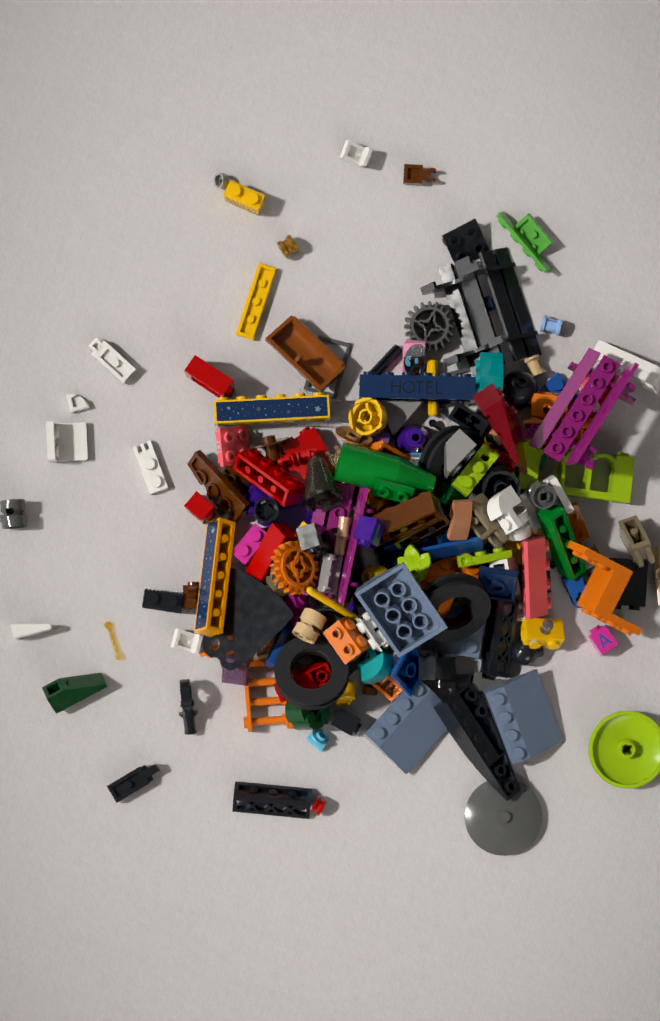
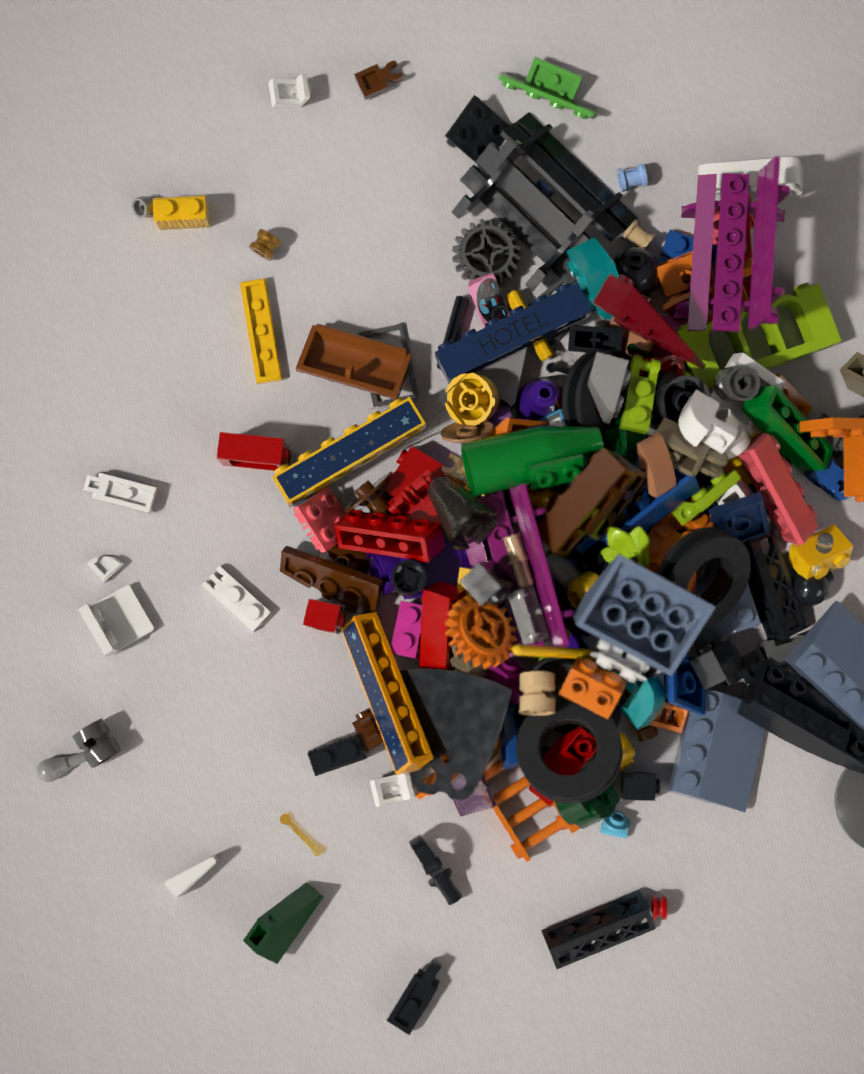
camera: 25 degrees left, 0 degrees up
(368, 531) = (553, 538): dark purple brick -> none

